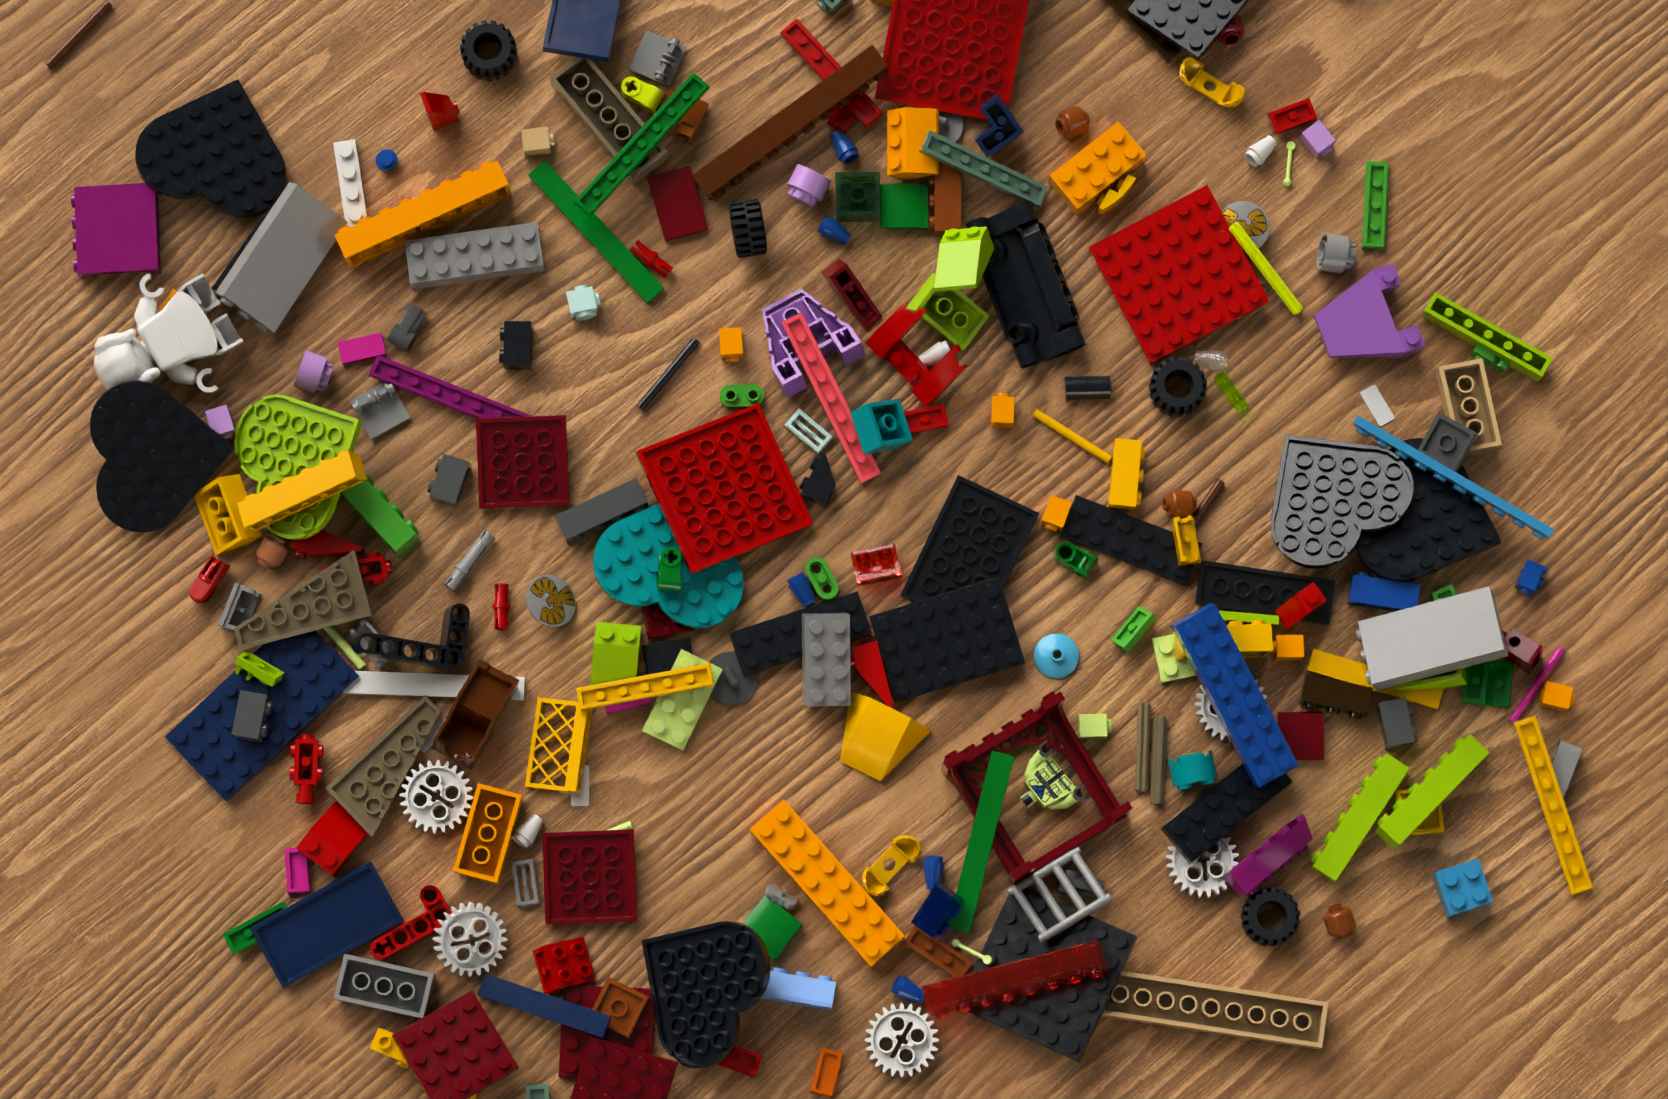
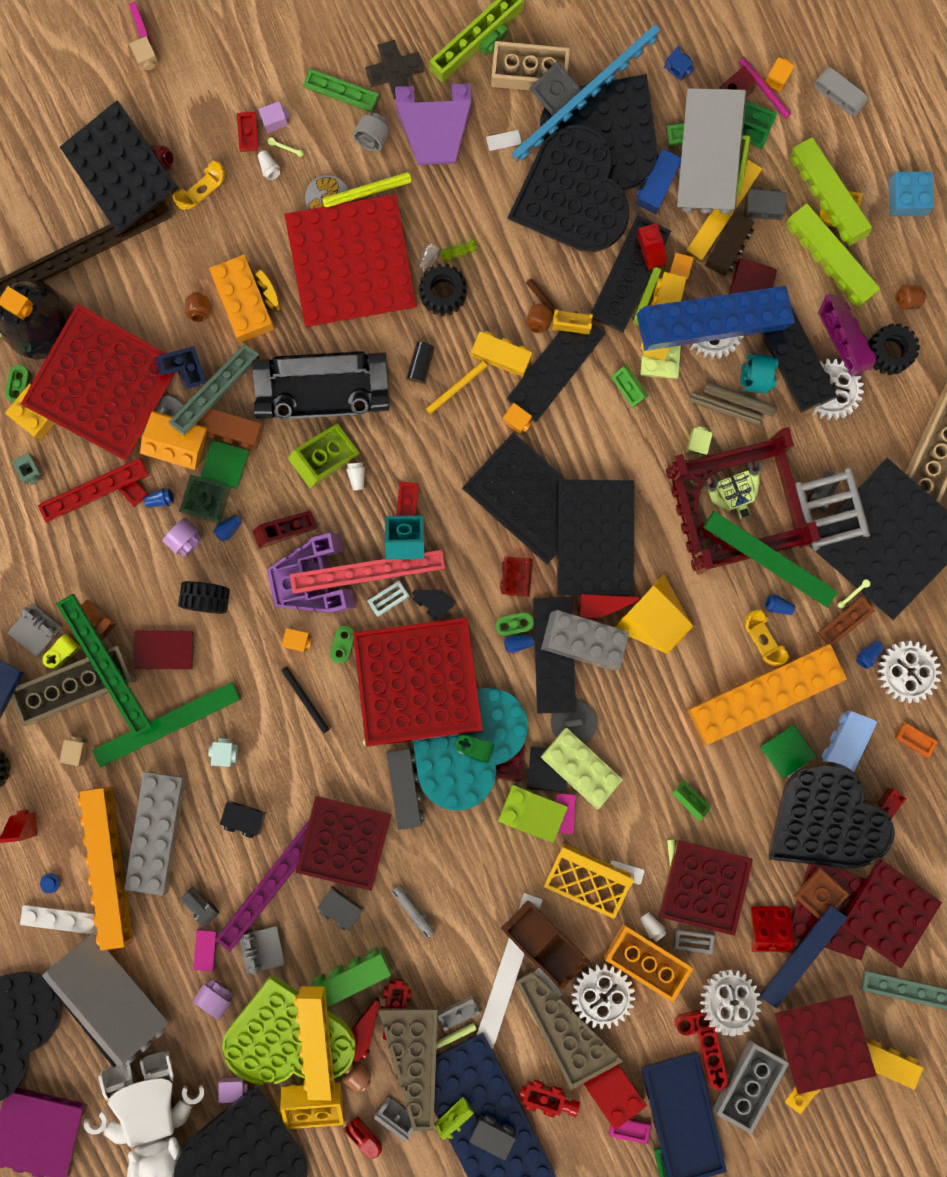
camera: 75 degrees left, 5 degrees up
(419, 648) = (477, 977): black beam -> none
(501, 606) = (459, 895): red pin -> none
(550, 600) = (467, 853): shield -> none
(645, 686) = (565, 796): yellow tile -> none
(651, 259) = (203, 685): red pin -> none
(682, 833) = (691, 800): none -> bright green plate
(780, 896) = (765, 735): light grey piece -> none
(791, 122) = (125, 534): reddish brown brick -> none
(888, 343) = (378, 491): red wedge -> none
(937, 911) = (815, 611): clear blue brick -> none
(962, 258) = (286, 427): slope -> none
(1002, 410) = (419, 436): light orange brick -> none
(1015, 978) = (892, 565): clear red brick -> none
(1054, 667) = (627, 463): medium azure dish -> none
(1076, 559) = (561, 413): green piece -> none
(1420, 256) = (393, 67): none -> clear smoke plate
(1553, 805) = (867, 101): yellow tile -> none

